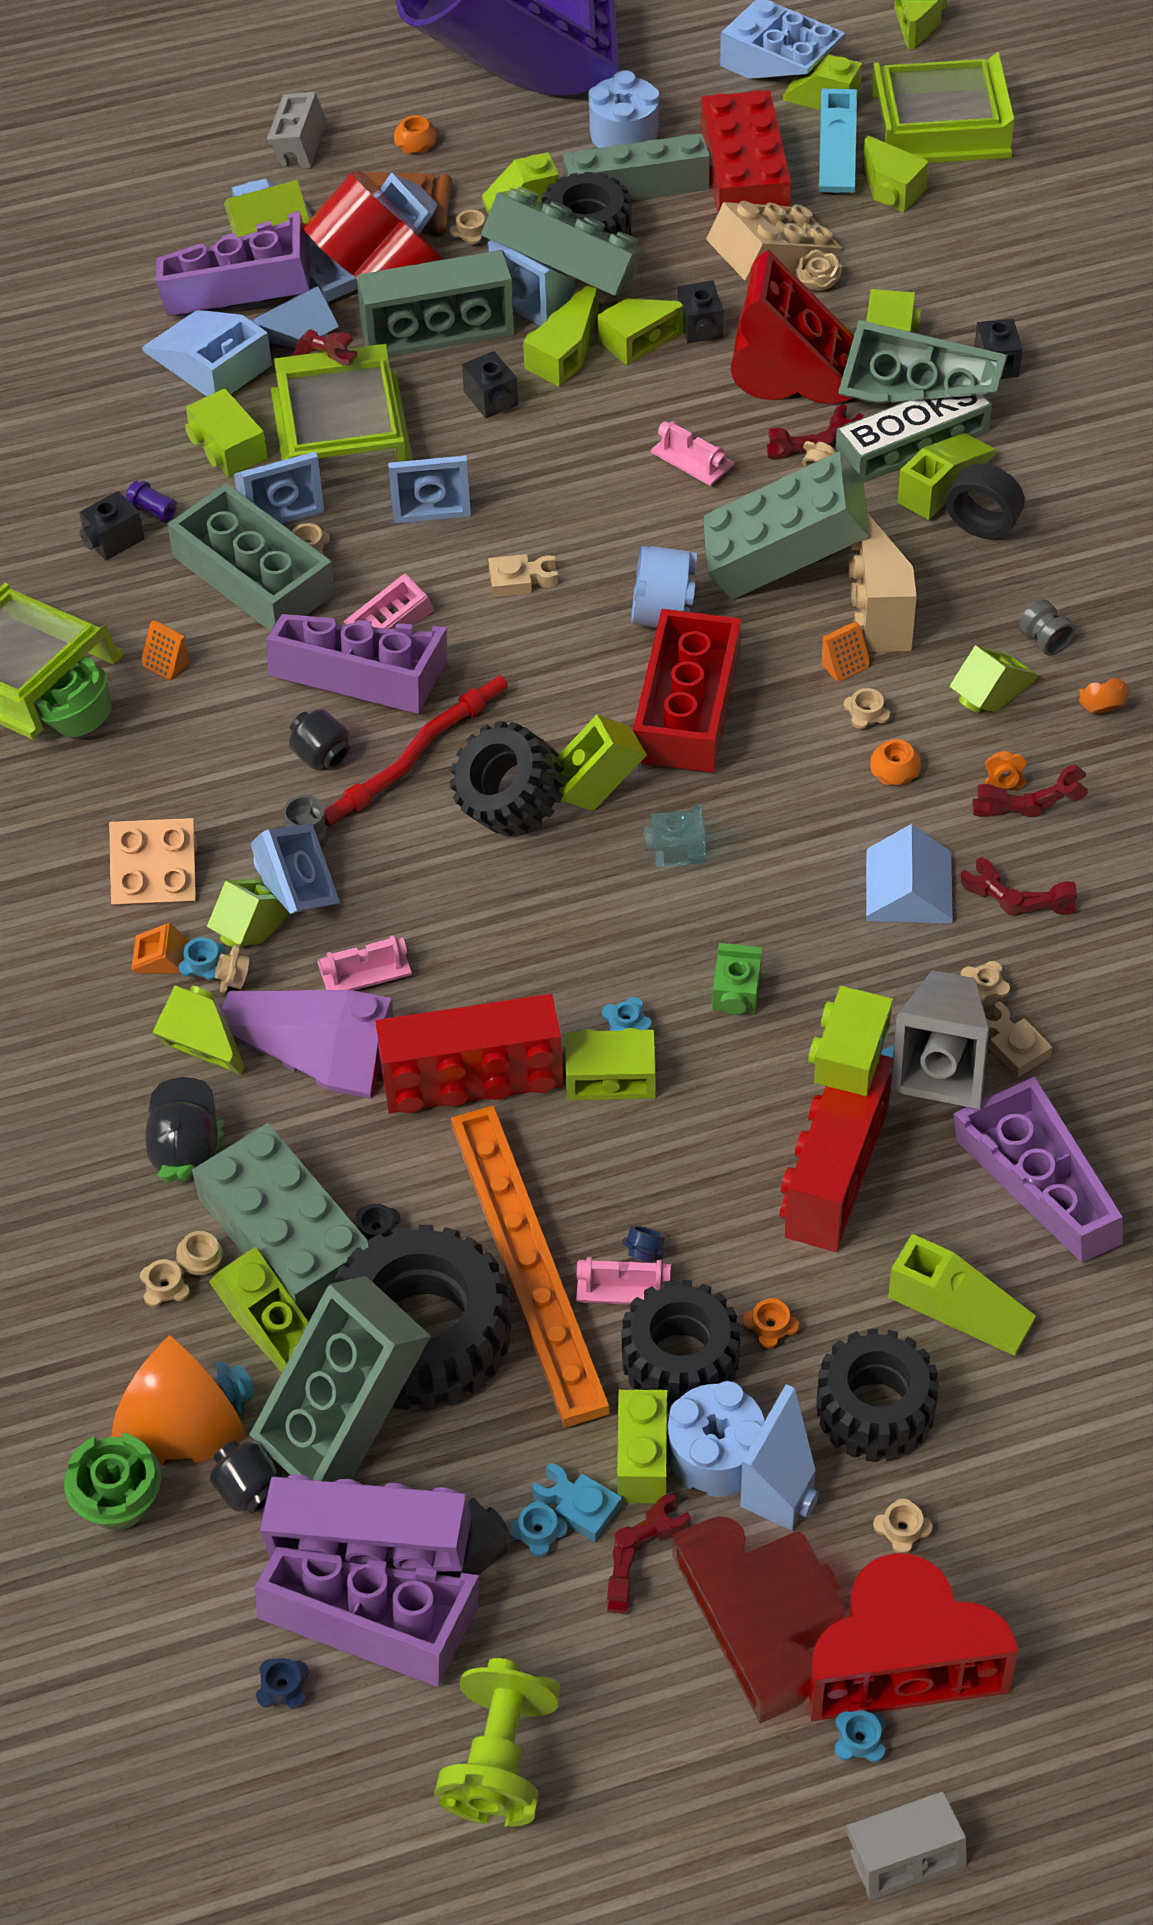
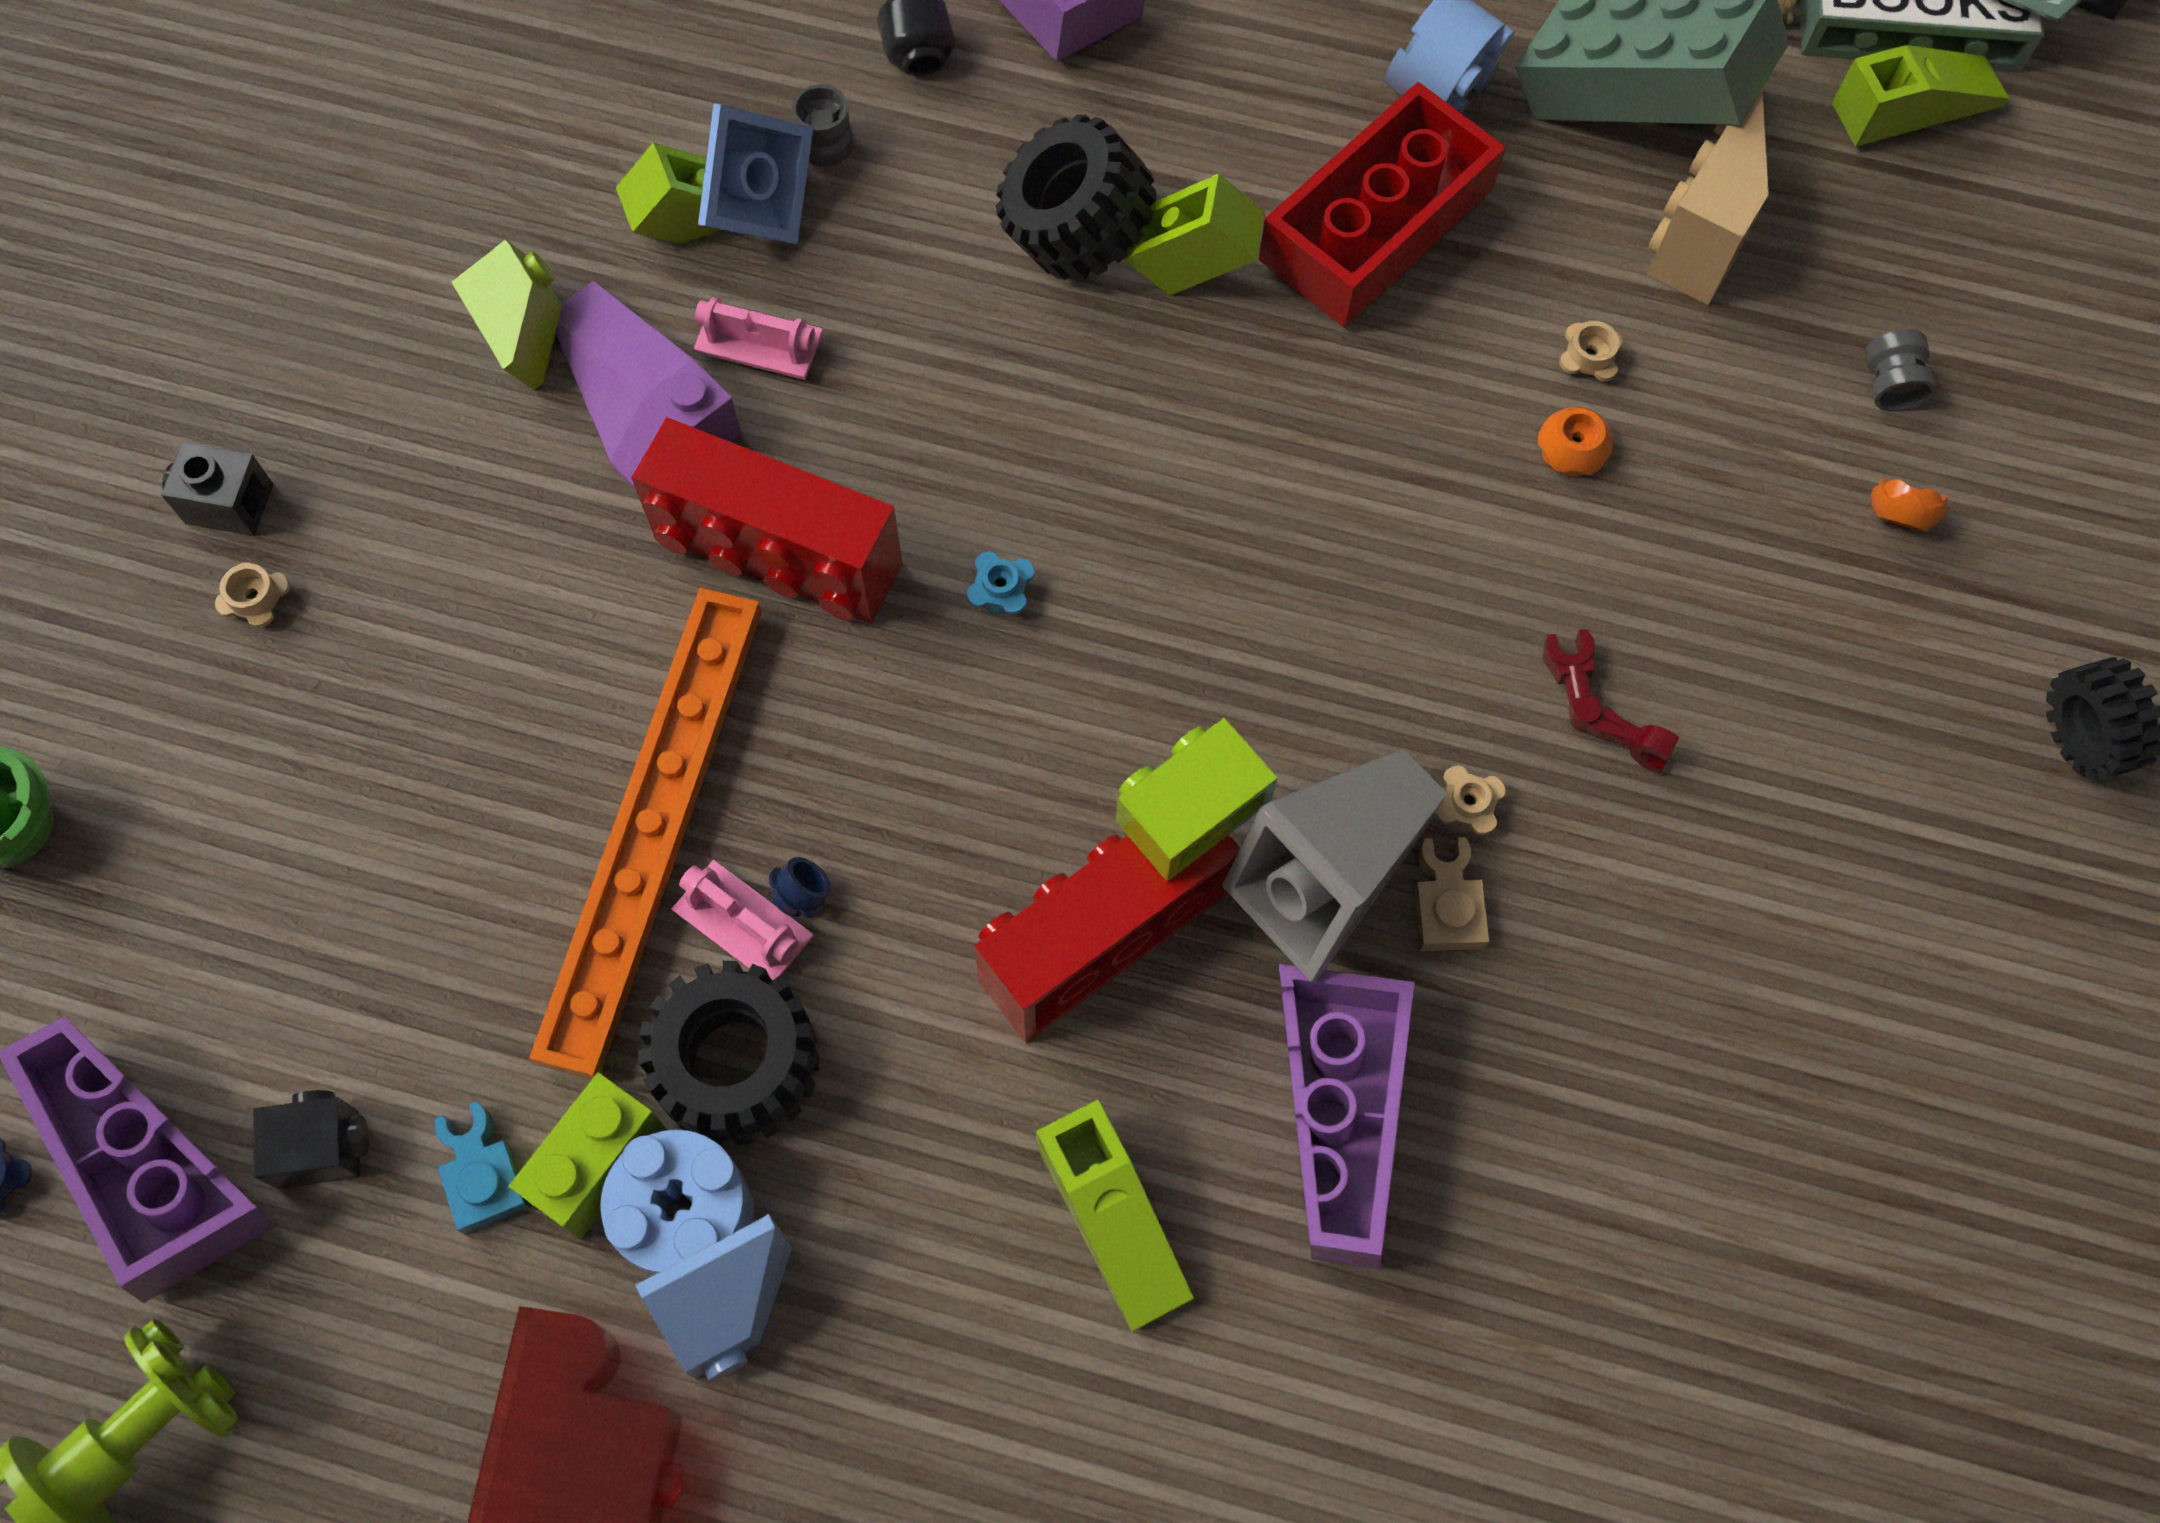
camera: 30 degrees right, 15 degrees up
(92, 1235) = (217, 488): none -> black brick
(152, 861) = (628, 75): light nougat hinge -> none
(159, 950) = (560, 190): orange slope -> none
(177, 1408) = (116, 765): orange brick -> none
(182, 1127) = (400, 421): black hair -> none
(198, 950) = (588, 212): dark azure plate -> none
(199, 1253) = (311, 582): tan plate -> none
(232, 969) = (609, 256): tan plate -> none
(235, 1384) = (213, 770): dark azure plate -> none
(244, 1475) = (138, 892): black head -> none
(261, 1306) = (319, 712): lime slope -> none
(276, 1204) = (418, 603): sand green brick -> none
(340, 1382) = (270, 858): sand green brick -> none
(368, 1522) = (171, 1057): medium lavender wedge -> none
(377, 1215) = (517, 655): black plate -> none
(453, 1269) = (416, 761): black tyre -> none
(469, 705) = (1124, 81): red bar -> none
(533, 1515) = (388, 1166): dark azure plate -> none
(610, 1064) = (933, 630): lime brick -> none
(628, 1541) = (432, 1318): dark red piece -> none
(676, 837) = (1232, 385): clear light blue brick -> none
(737, 979) = (1164, 635): bright green brick -> none
(770, 1310) = (859, 1072): orange plate -> none
(845, 652) = (1618, 261): orange slope -> none
(883, 1362) = (871, 1232): black tyre -> none
(902, 1512) = (803, 1459): tan plate -> none
(909, 879) = (1478, 607): light blue slope -> none
(991, 679) = (1777, 400): lime slope -> none
(995, 800) = (1663, 565): dark red piece -> none
(997, 485) = (1966, 148): black tyre -> none
(1006, 762) = (1703, 532): orange plate -> none

